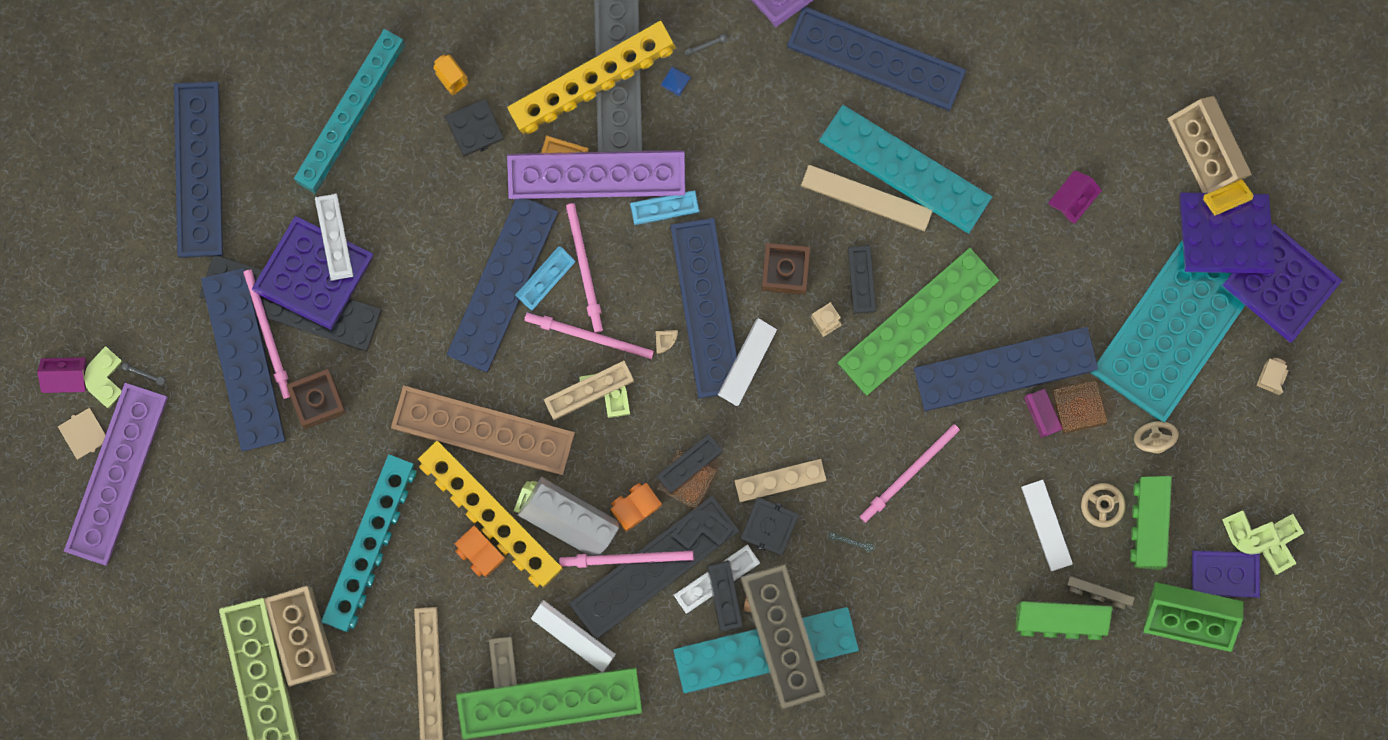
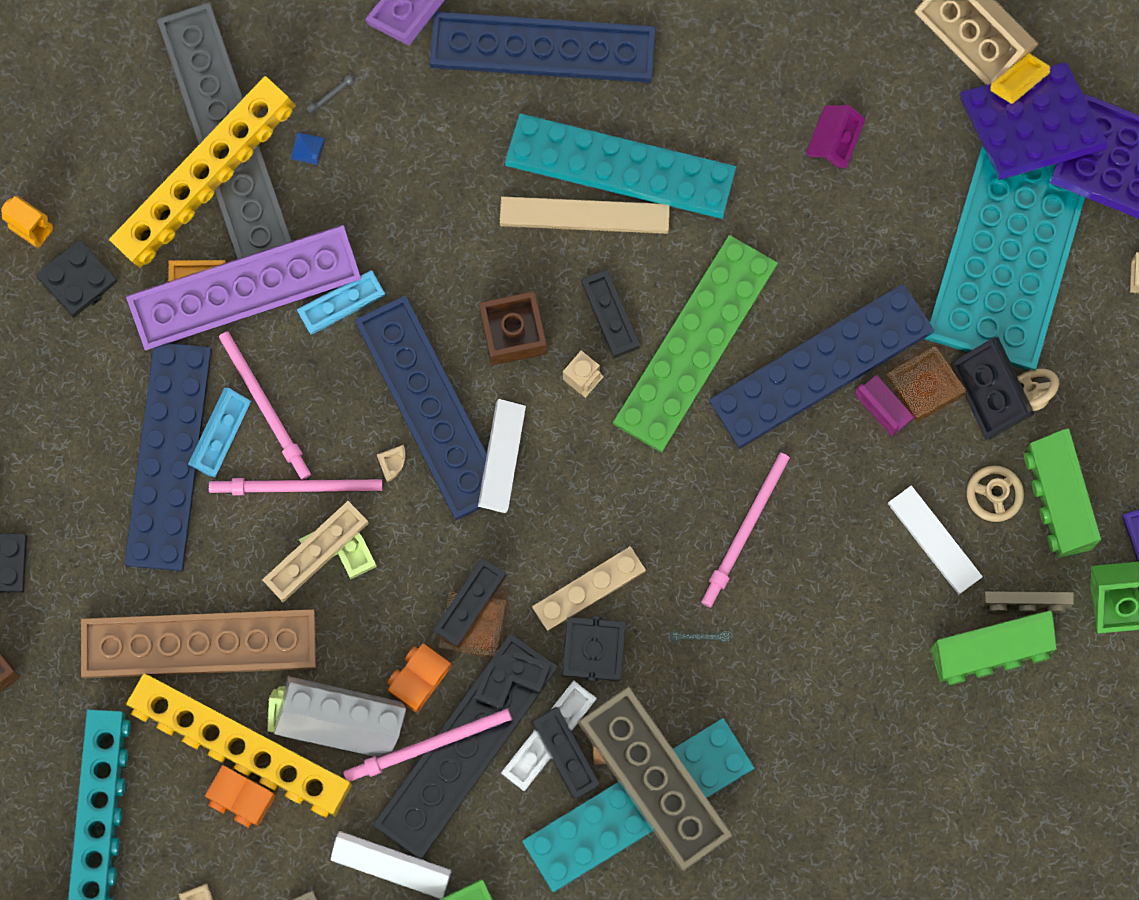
camera: 15 degrees left, 5 degrees down
(1126, 426) = (992, 388): none -> black tile

